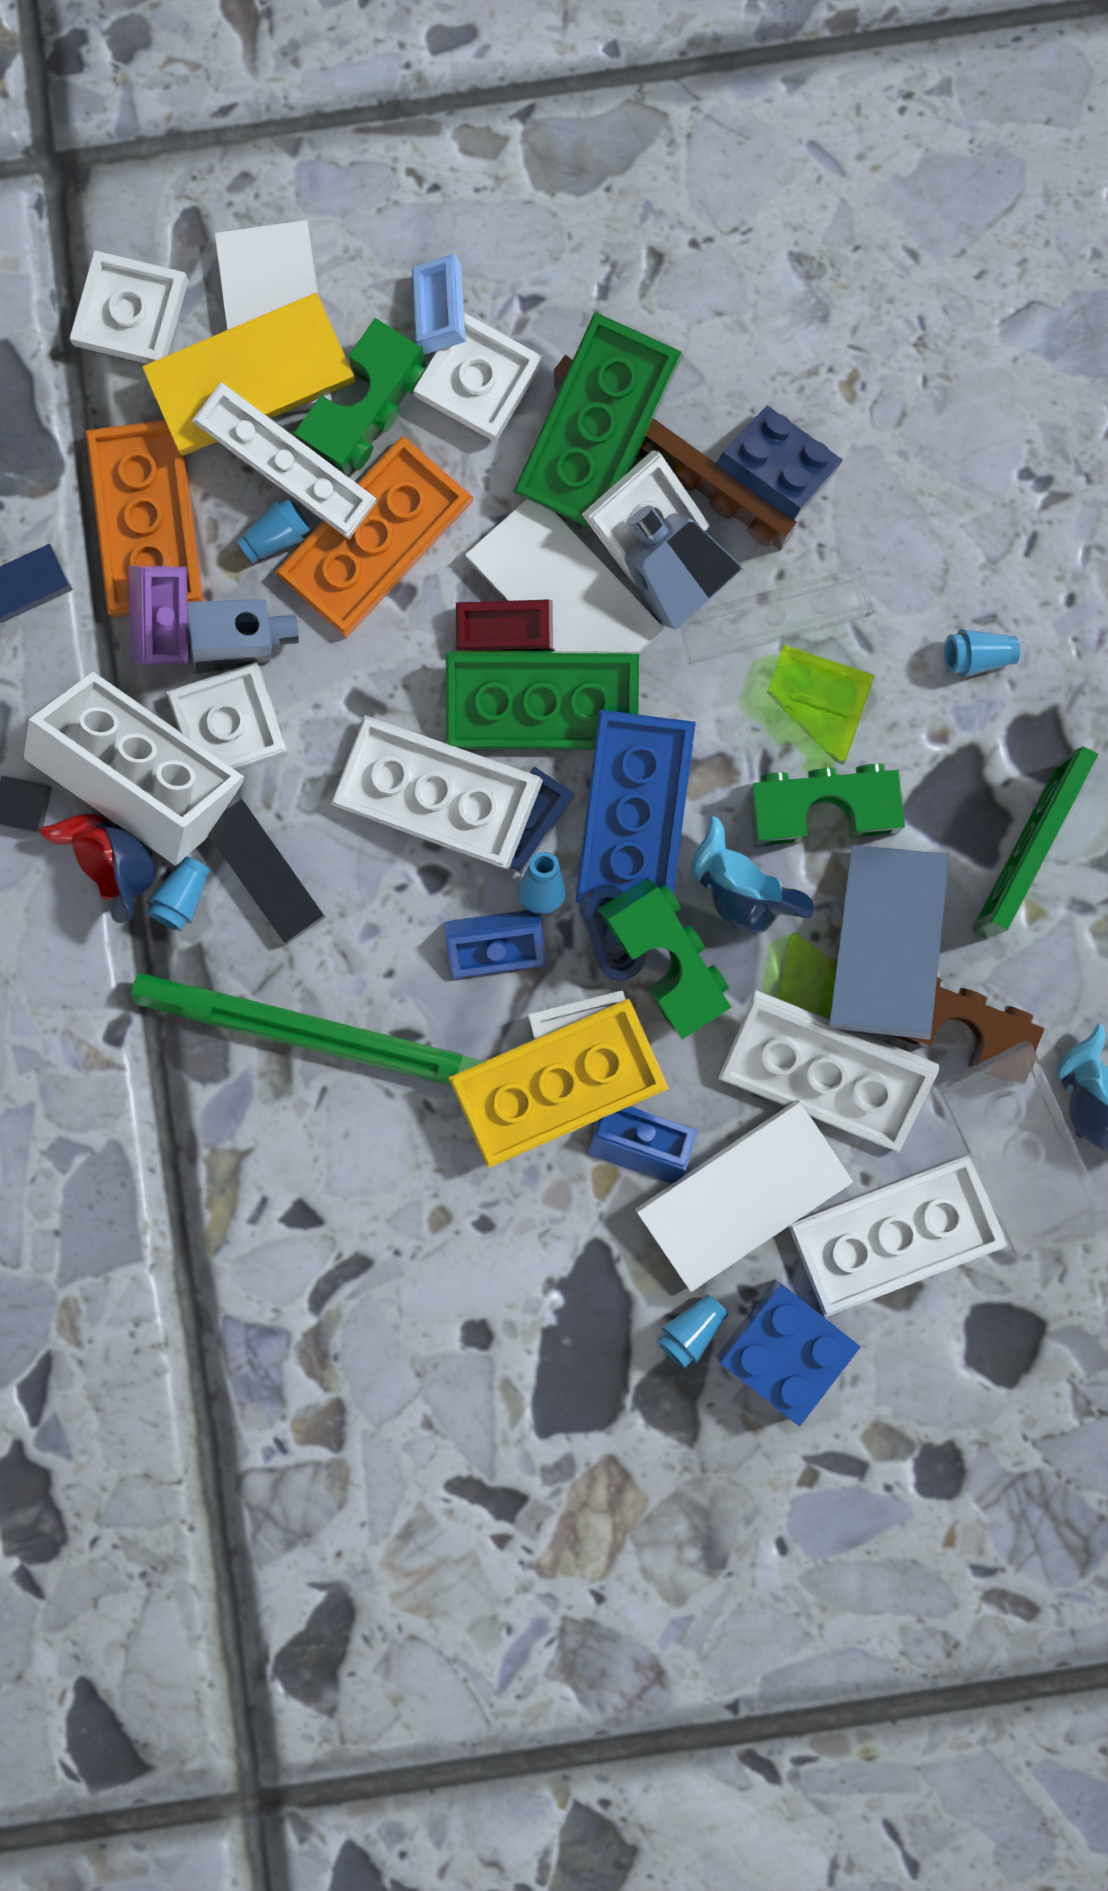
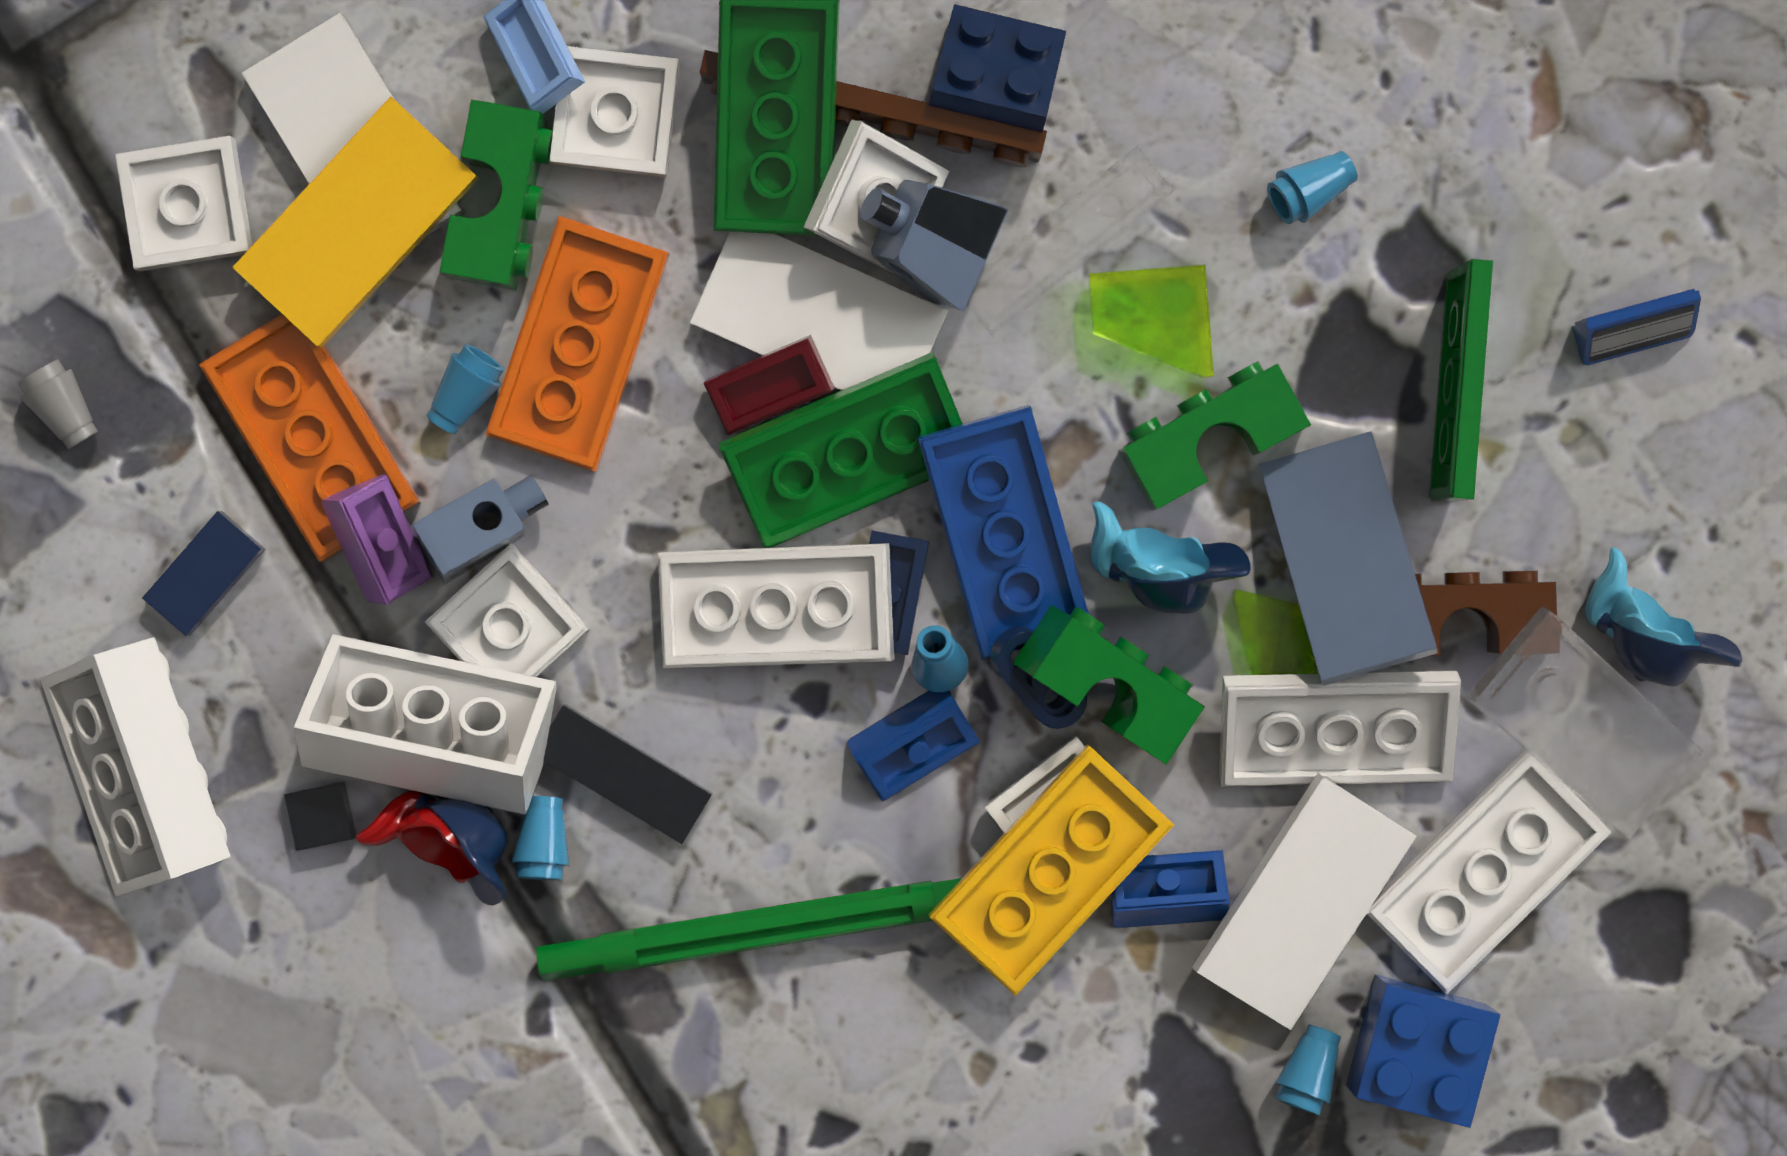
camera: 25 degrees left, 5 degrees up
(284, 460) = (442, 306): white tile -> none

